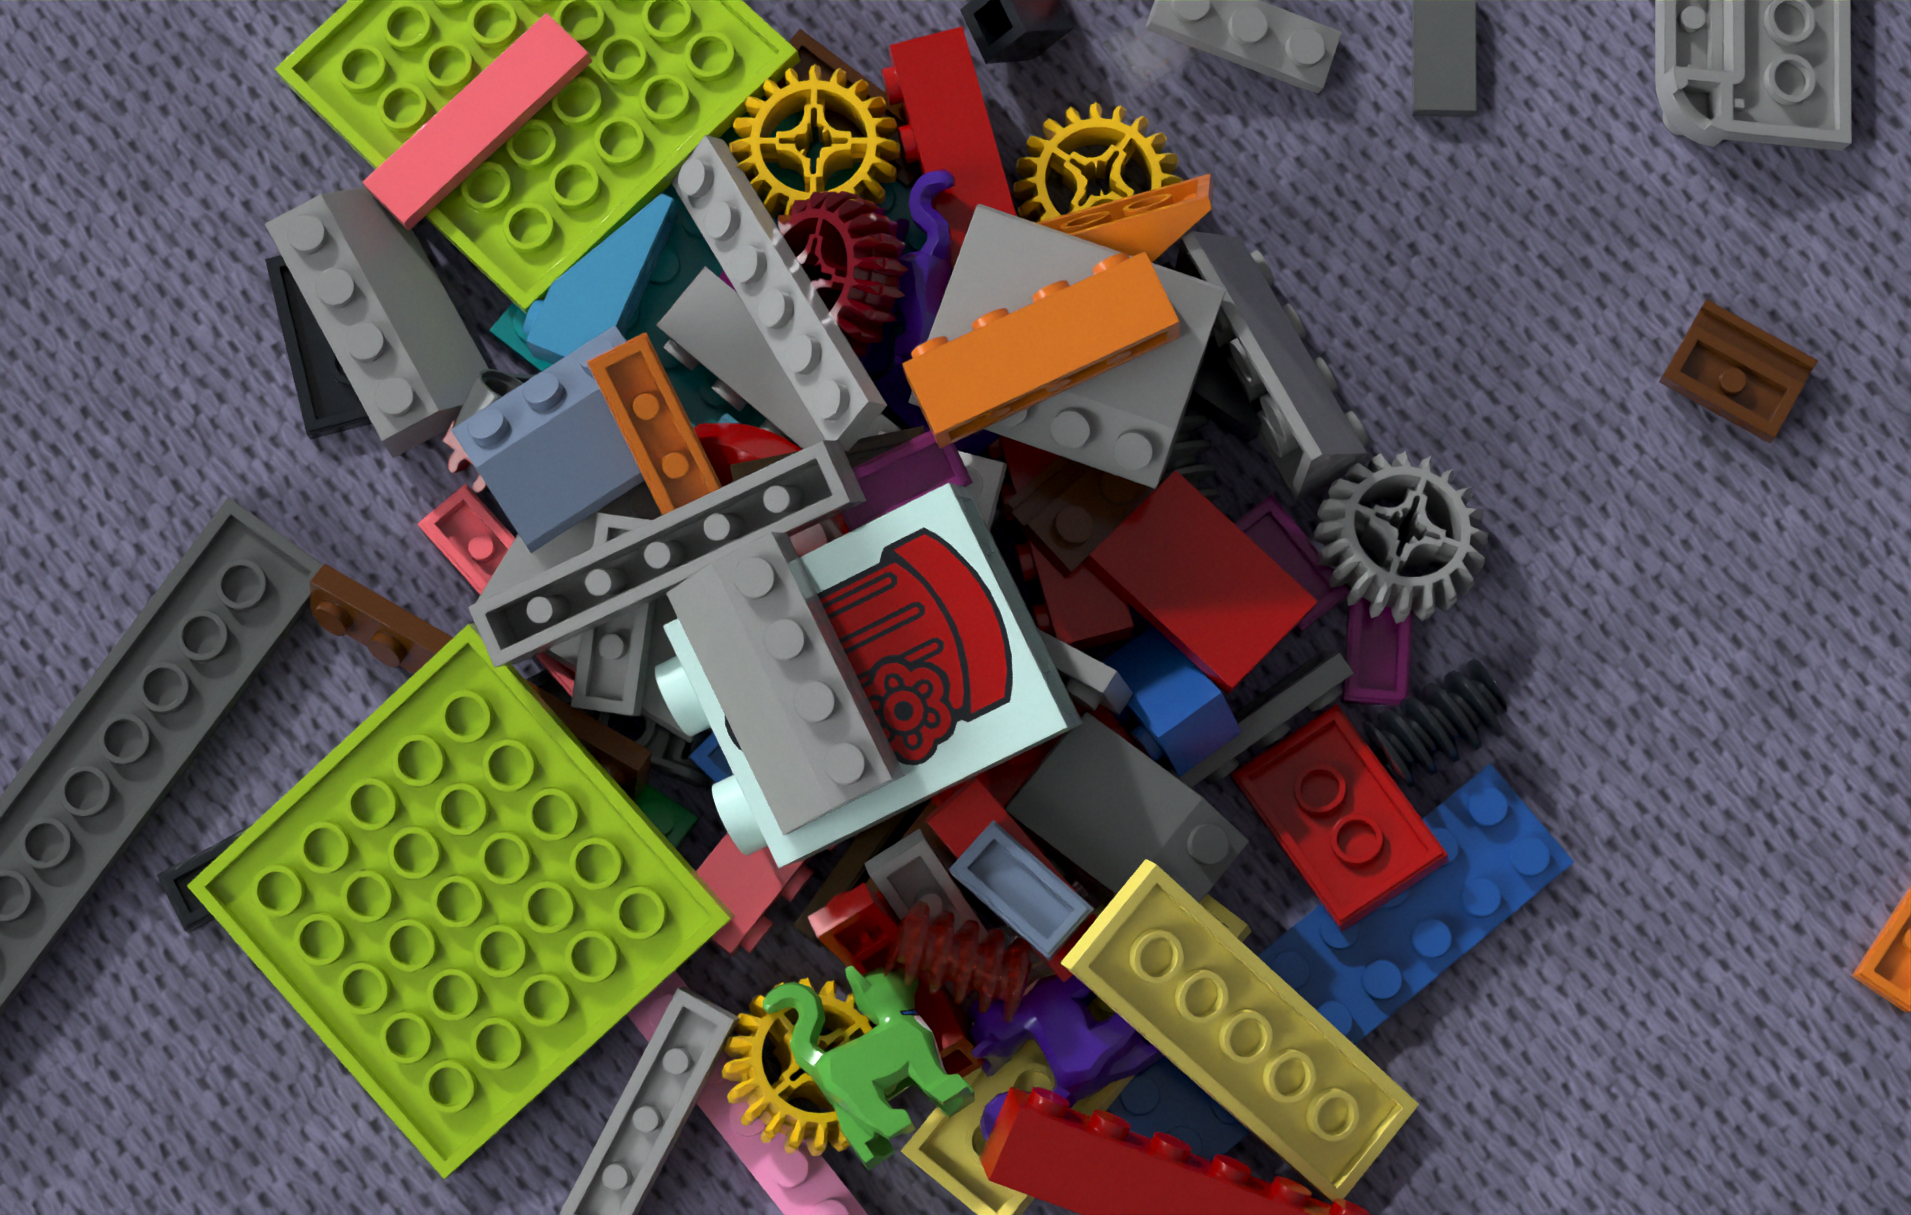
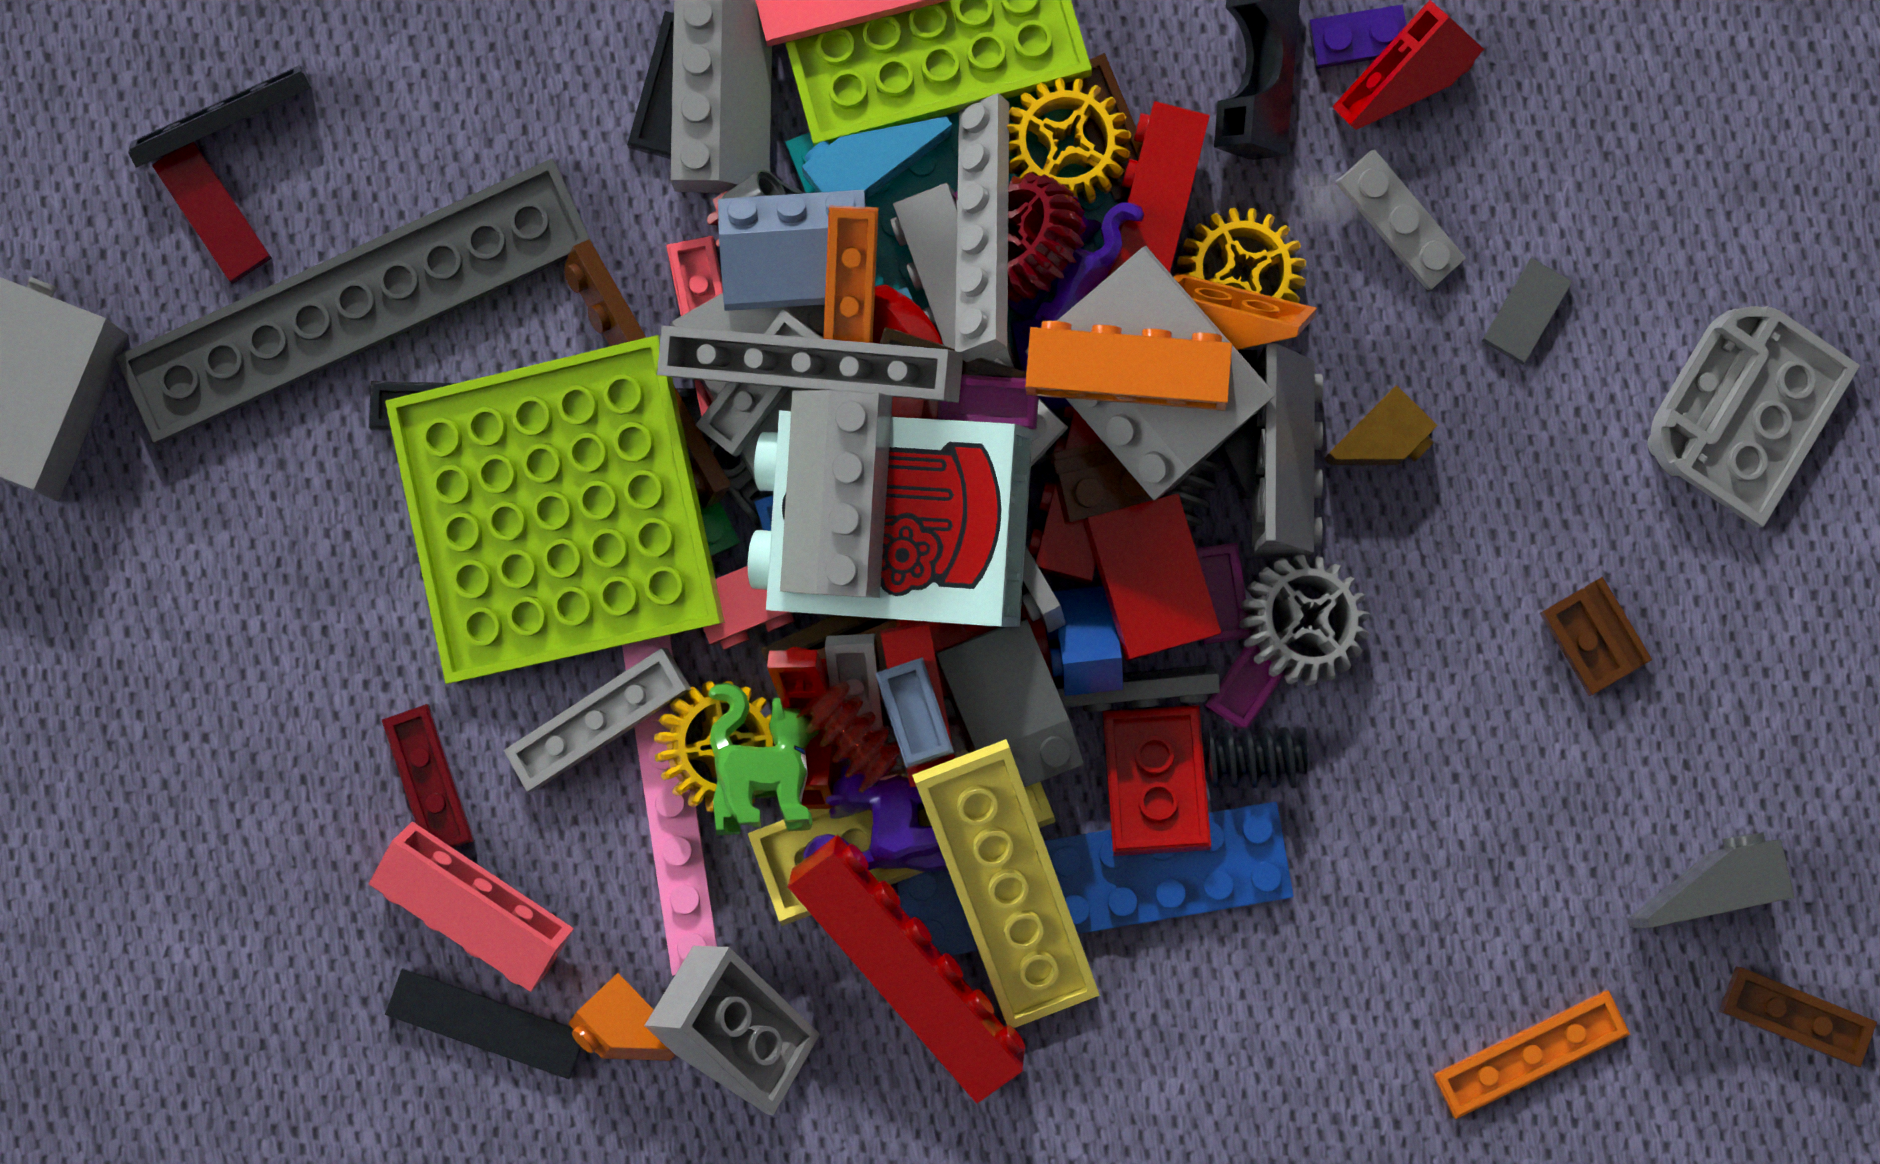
camera: 25 degrees right, 5 degrees up
(1369, 276) = (1386, 434): none -> pearl gold slope

